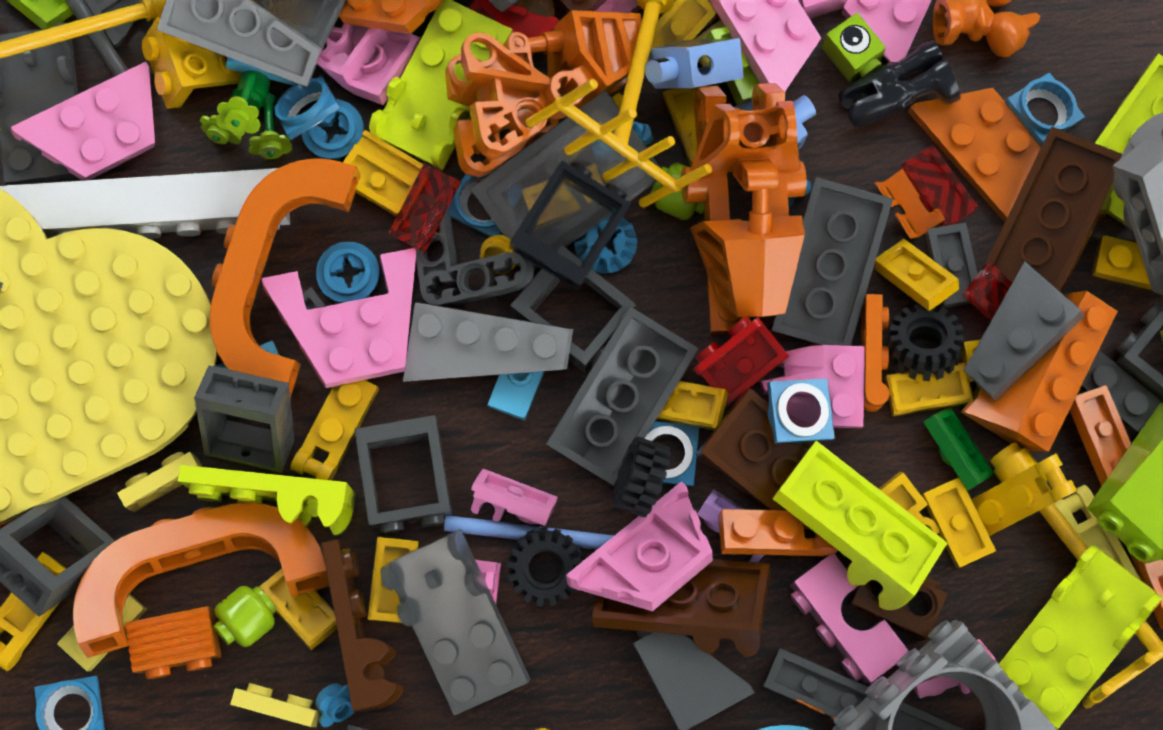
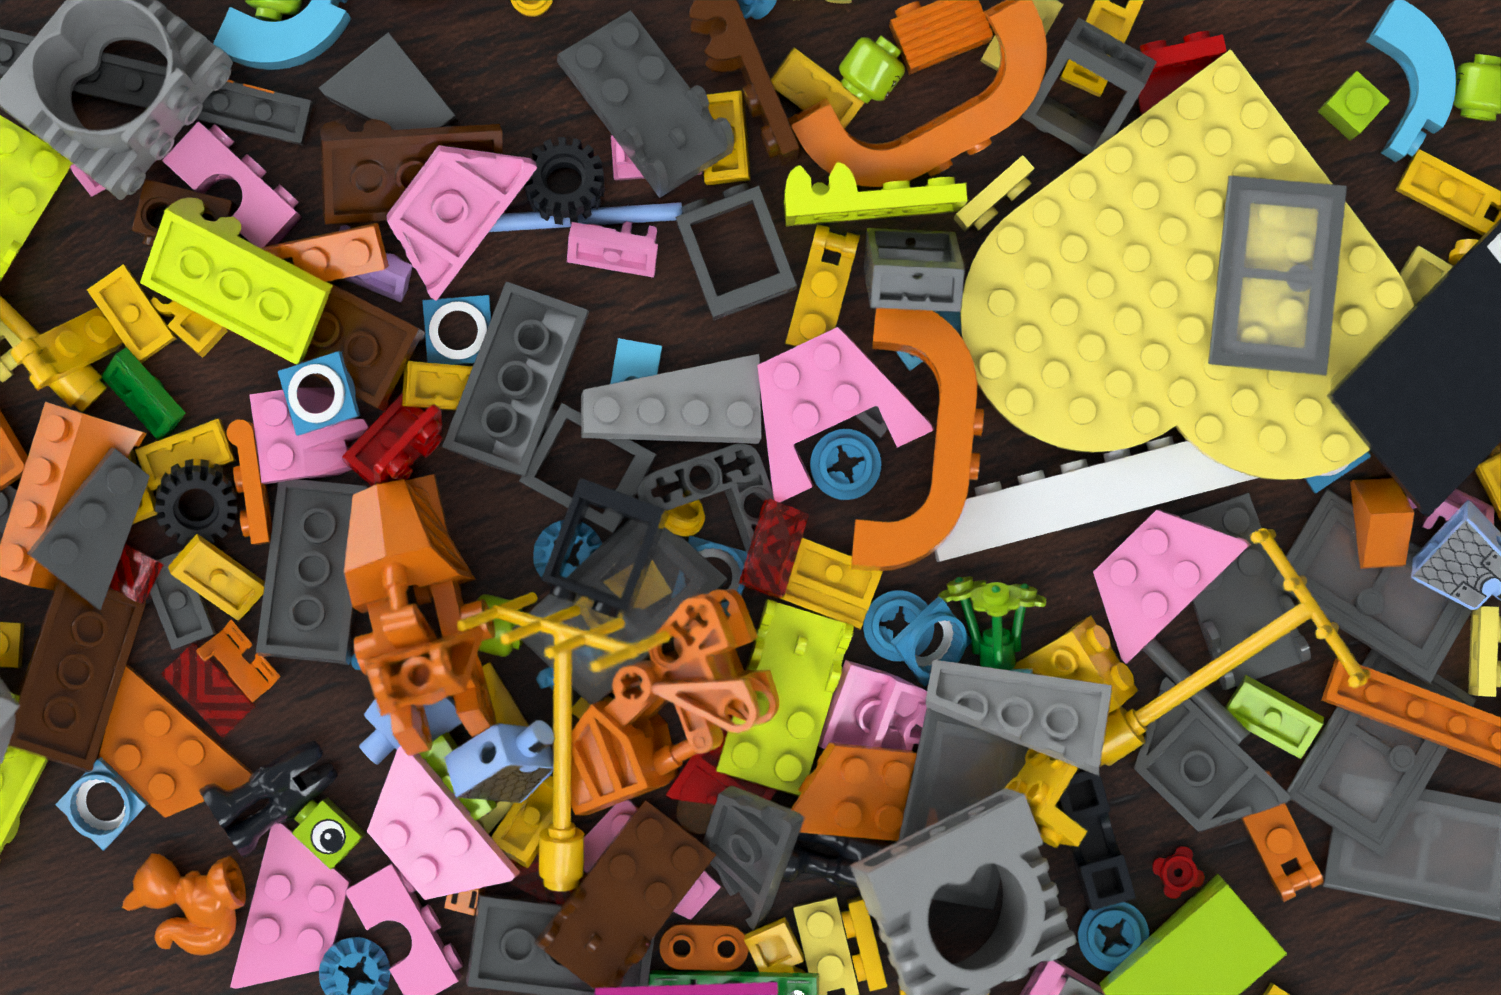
camera: 165 degrees right, 10 degrees up
(641, 476) = (477, 288): black tyre -> none

